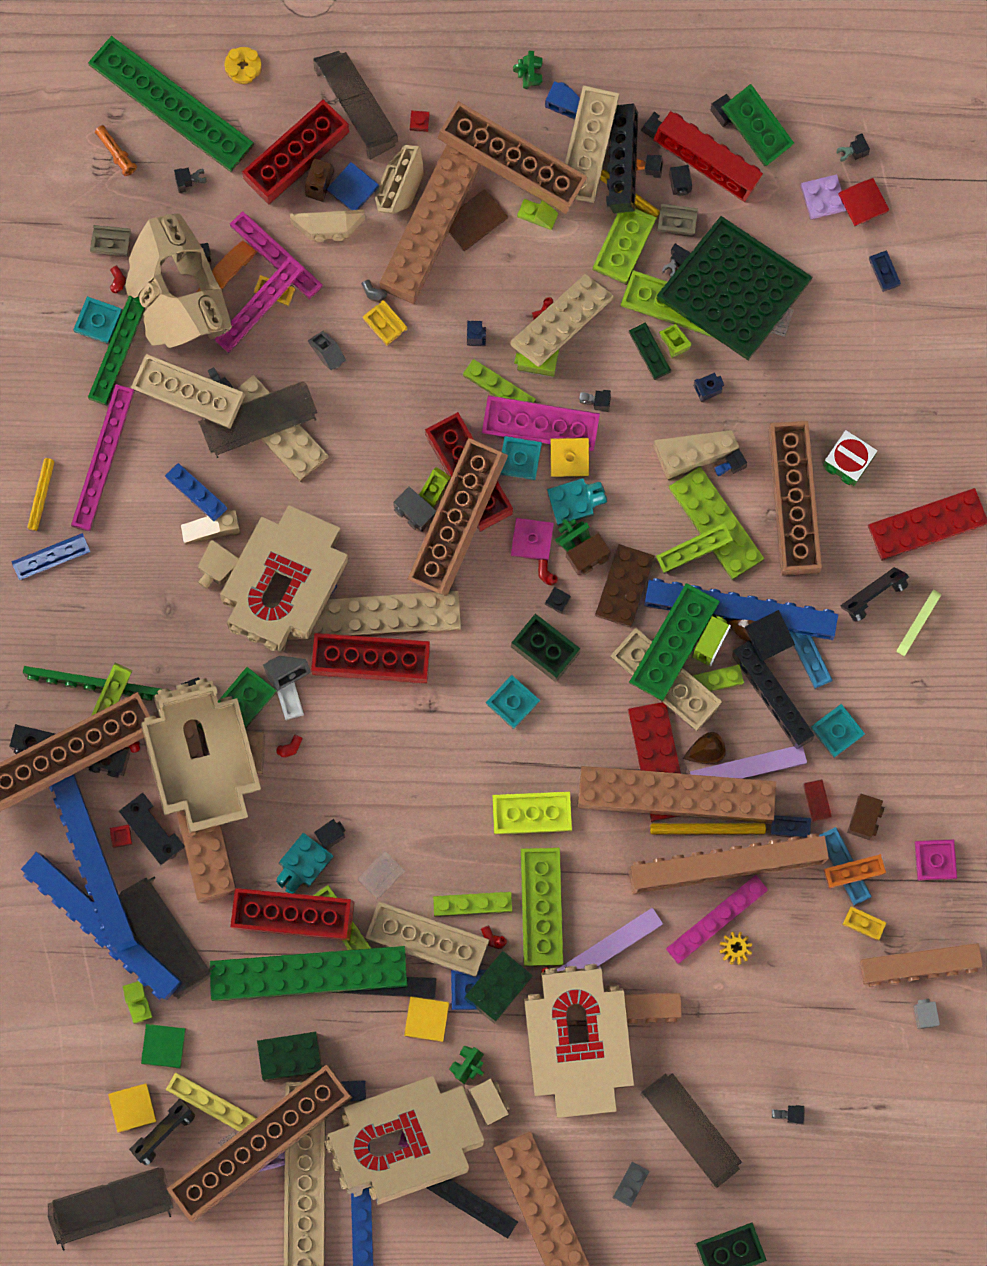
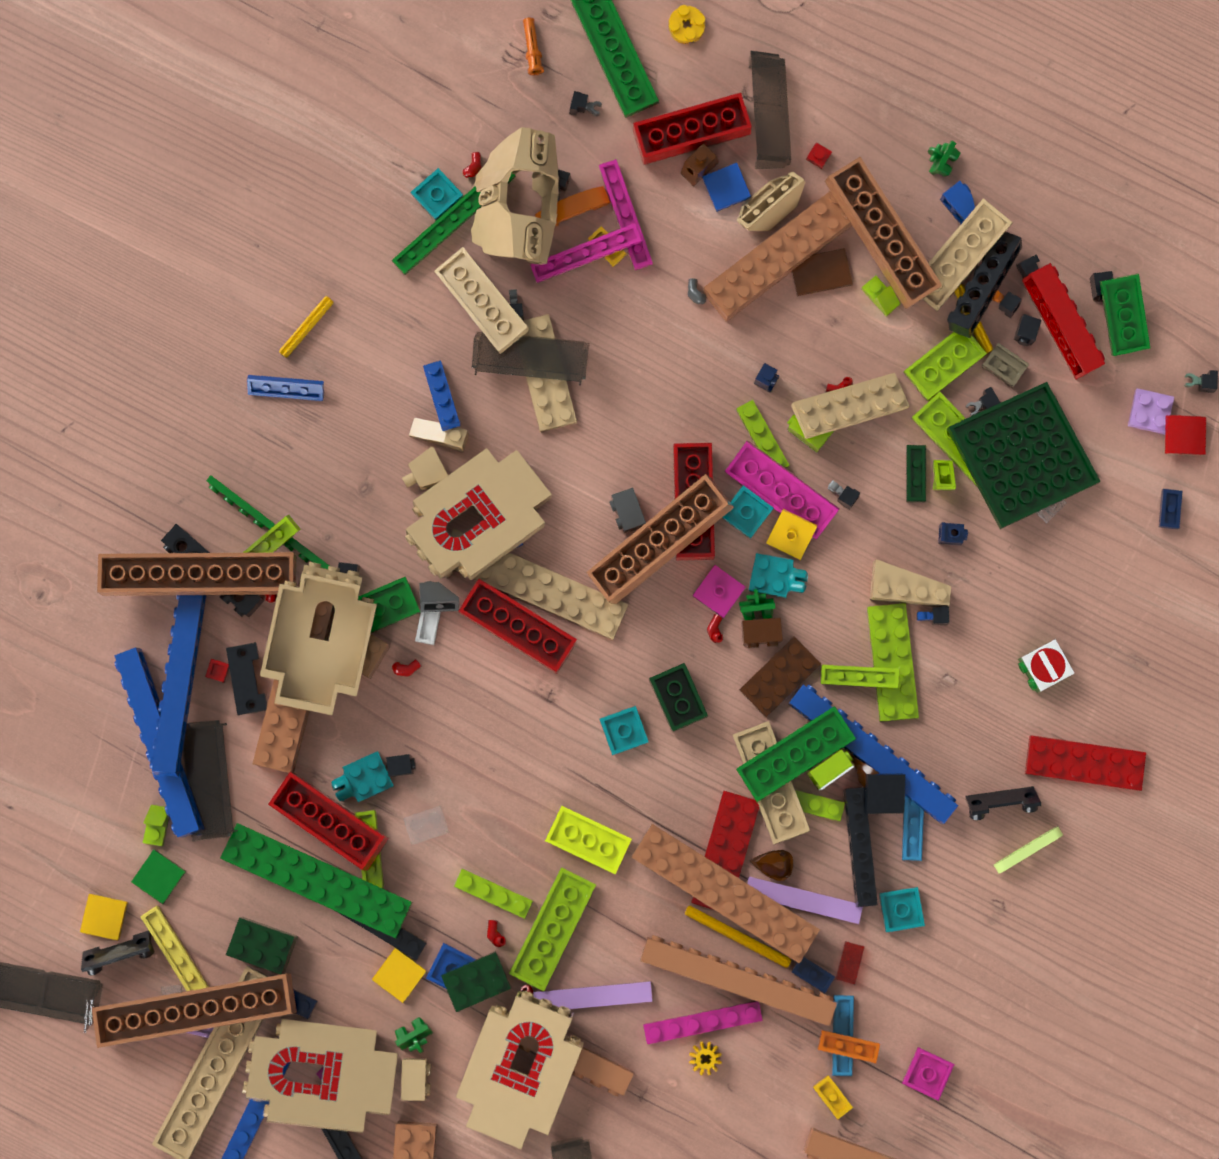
camera: 30 degrees right, 5 degrees up
(102, 458) = (377, 321): dark pink plate -> none
(110, 240) = (485, 127): dark tan plate -> none
(327, 350) = (625, 325): dark grey slope -> none
(328, 225) = (687, 210): tan wedge -> none
(384, 322) = (690, 326): yellow plate -> none
(427, 939) = (436, 905): tan plate -> none
(435, 486) = (656, 500): lime slope -> none
(557, 600) = (713, 658): black plate -> none
(794, 498) = (975, 677): nougat brick -> none
(865, 817) = (885, 1001): reddish brown brick -> none

